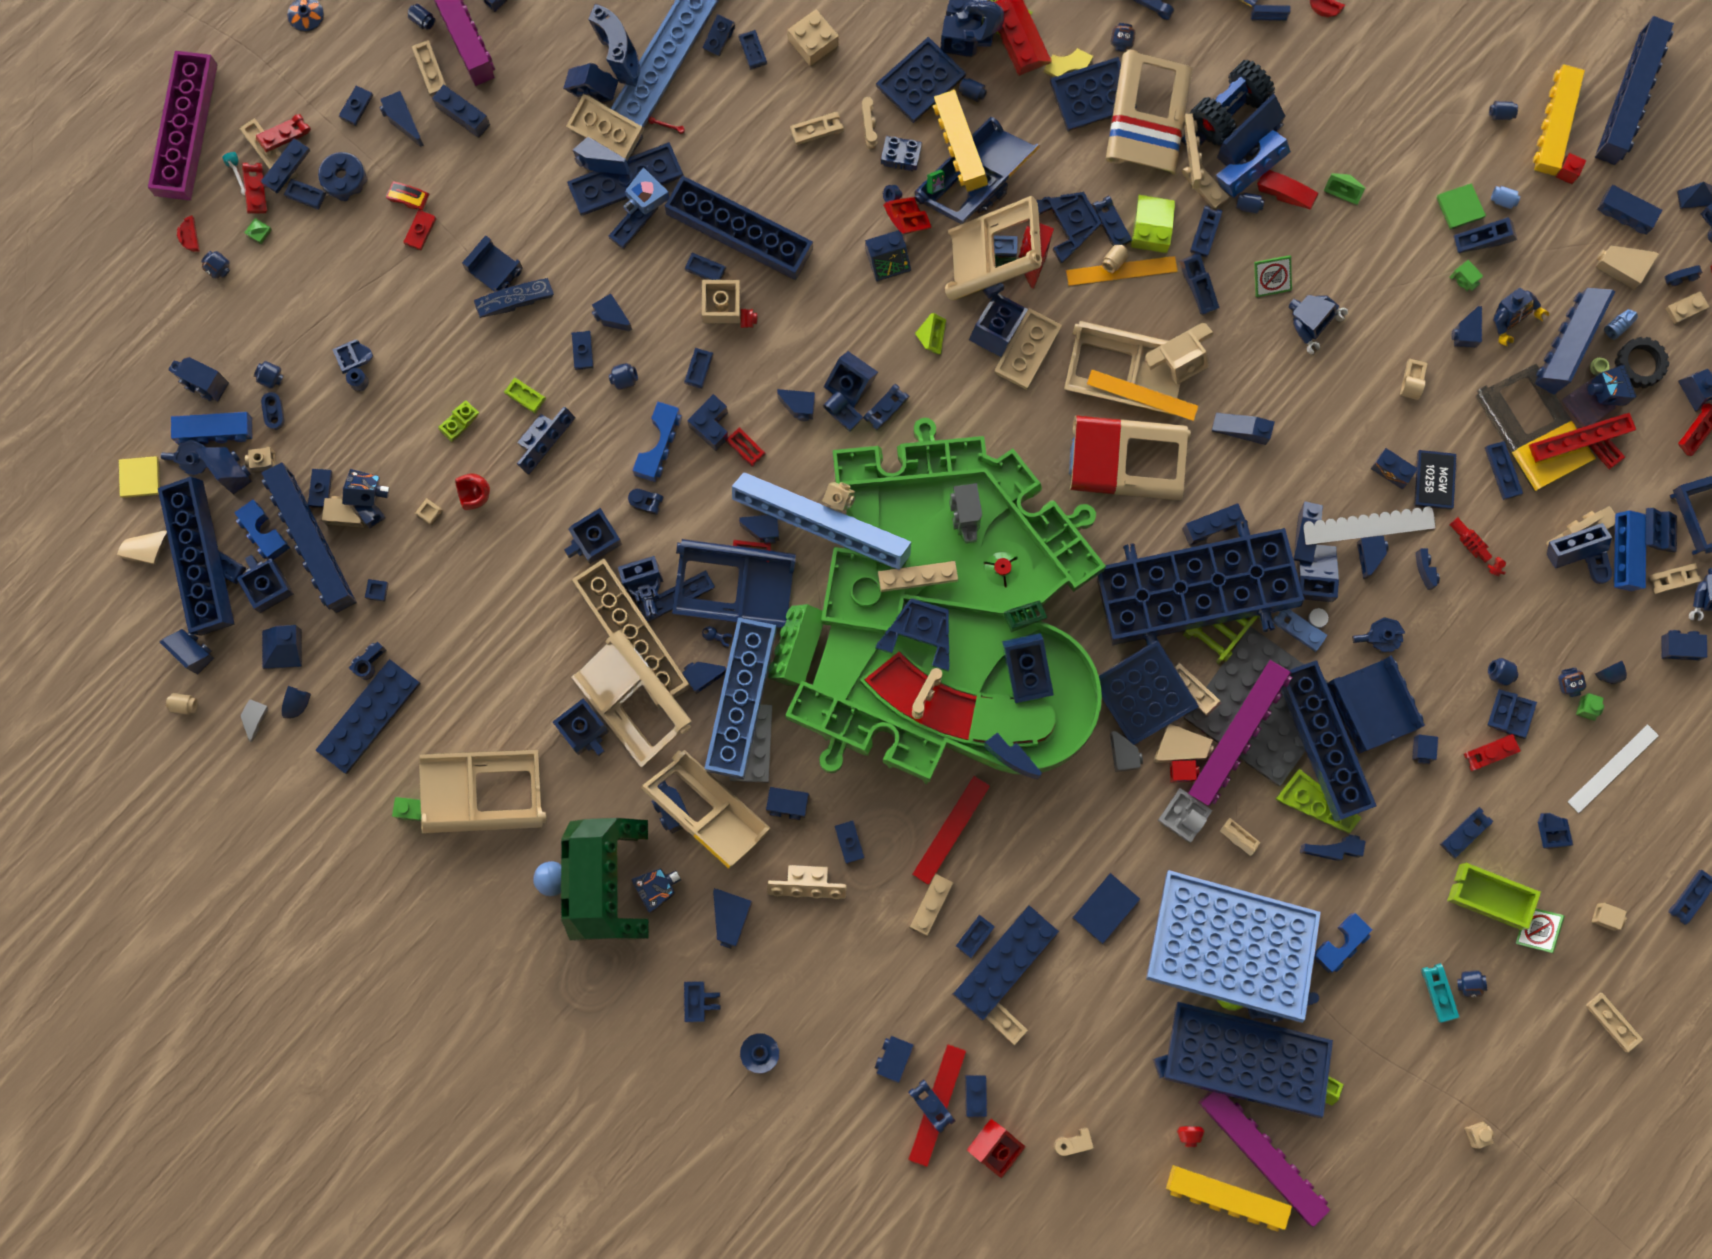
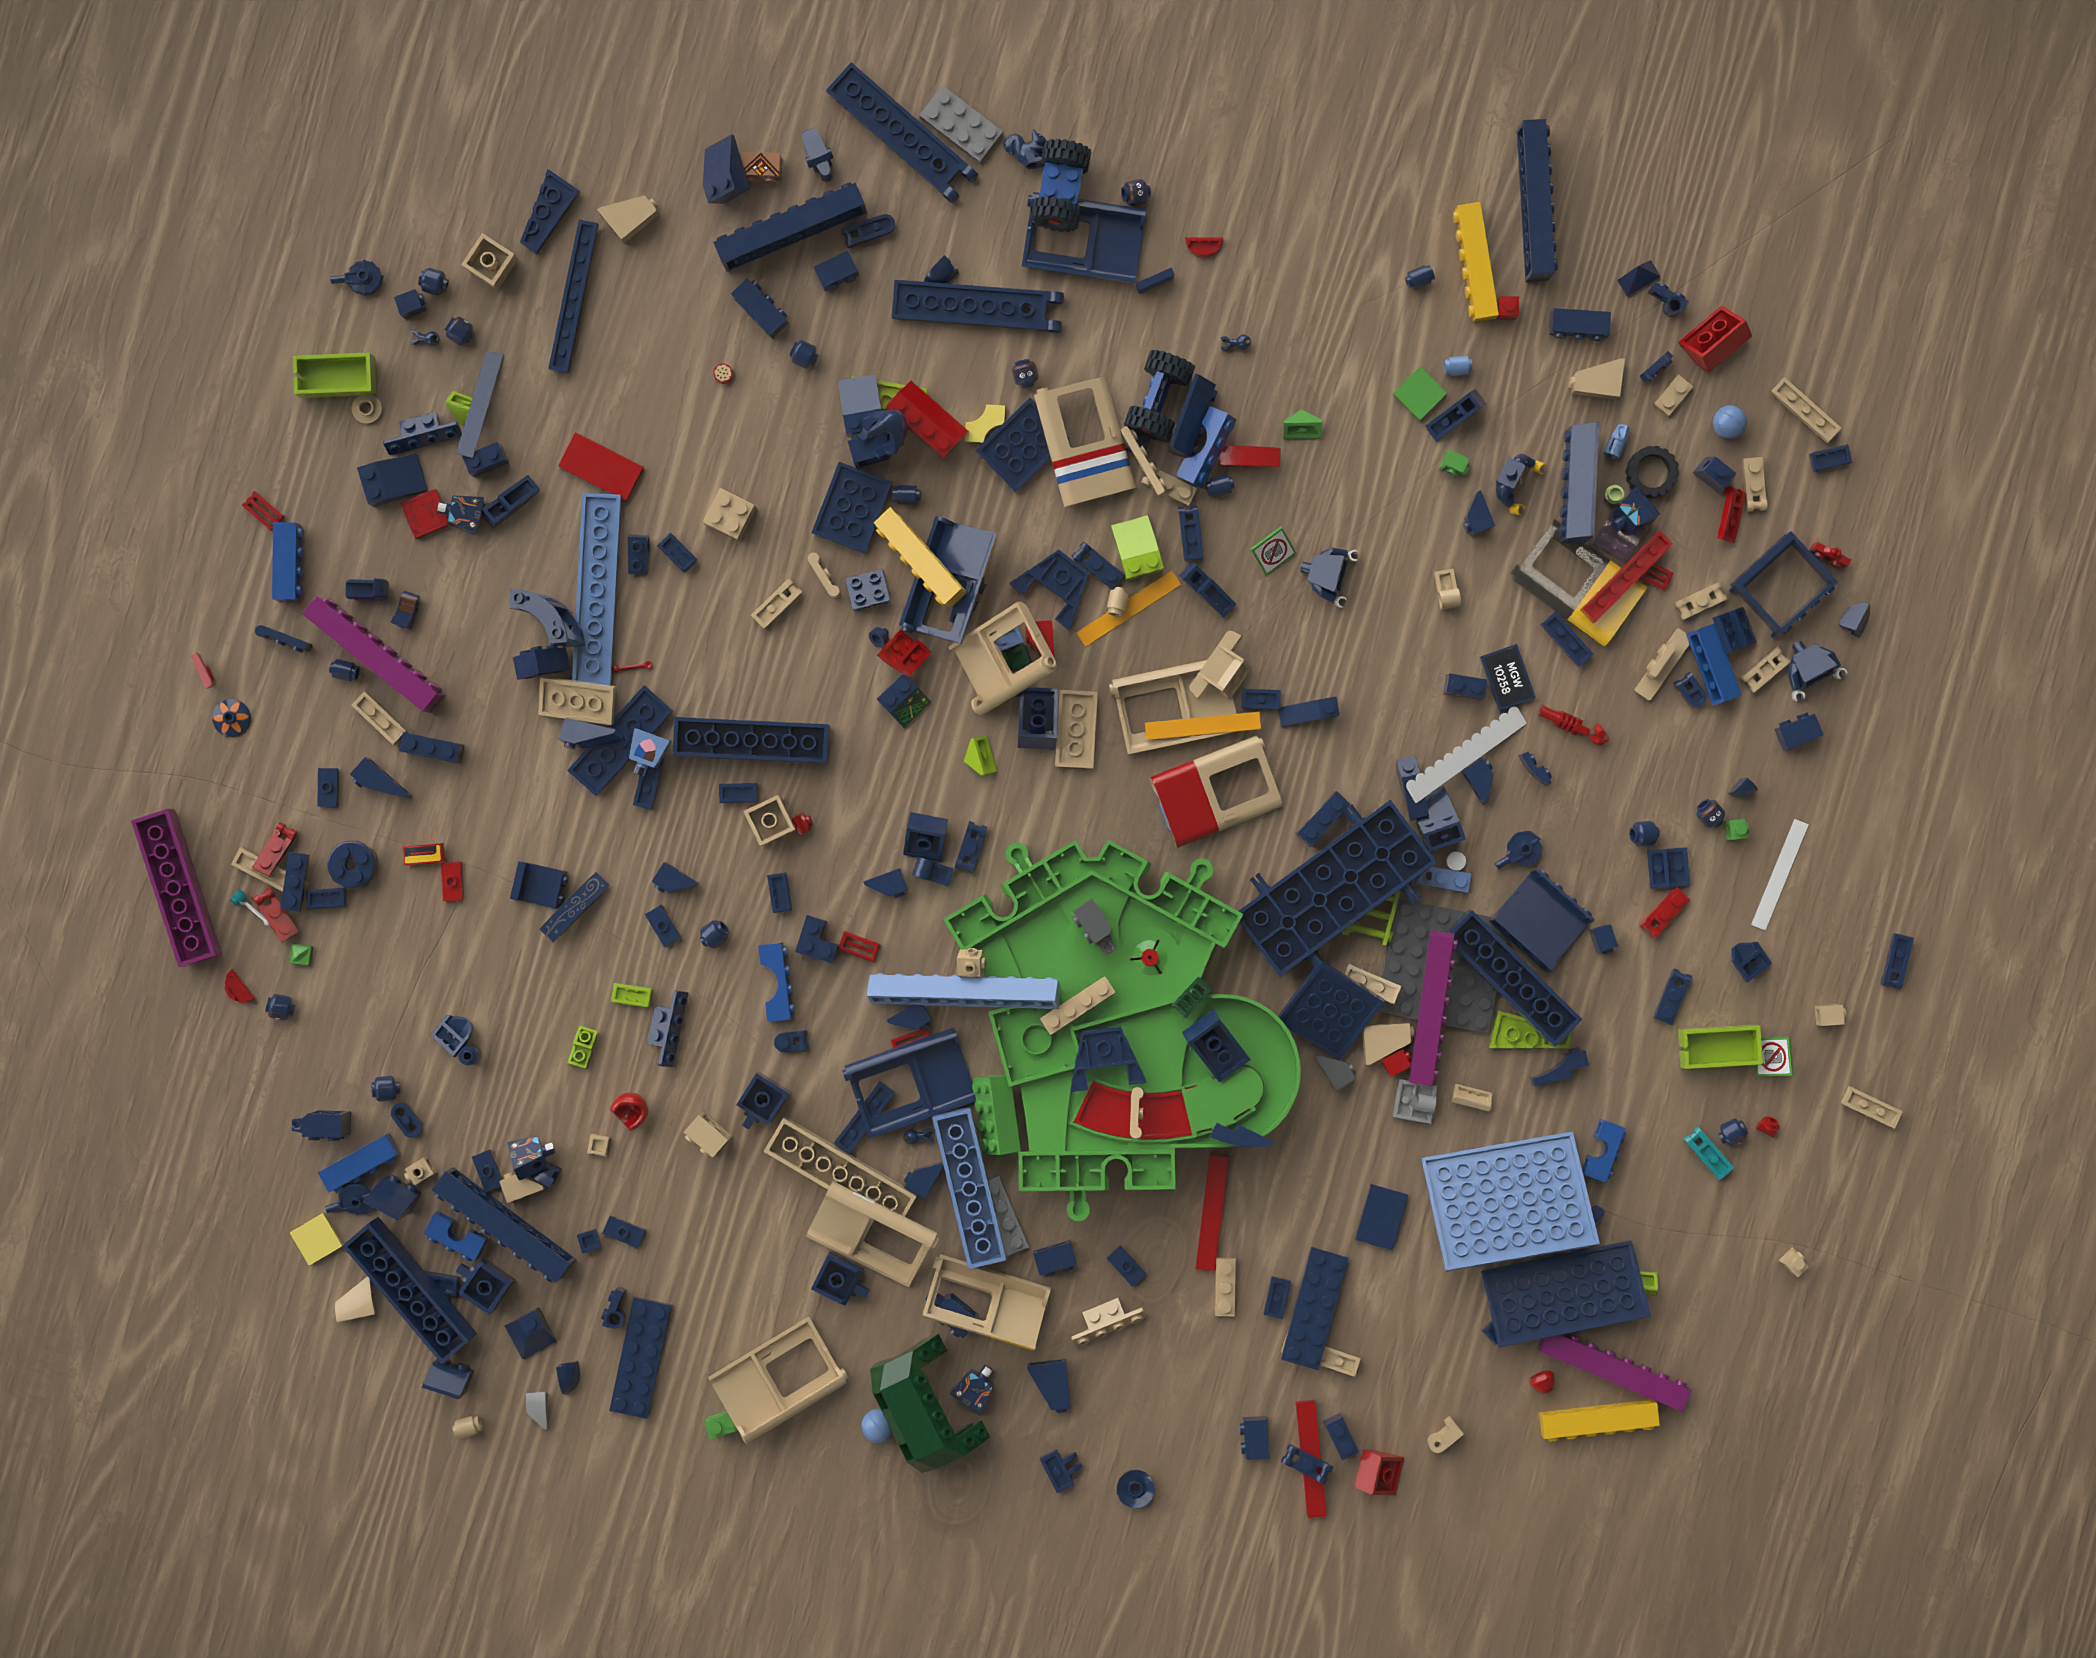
camera: 25 degrees left, 10 degrees up
(411, 597) = (623, 1231): none -> dark blue plate
(530, 544) = (707, 1135): none -> tan brick
(641, 581) = (827, 1121): dark blue brick -> none
(935, 181) = (915, 607): green tile -> none
(1204, 397) = (1261, 699): none -> dark blue plate
(1322, 95) = (1239, 342): none -> dark blue arm
(1508, 994) = (1768, 1125): none -> red plate
(1579, 545) = (1665, 684): dark blue brick -> none
(1640, 492) = (1700, 600): none -> tan plate

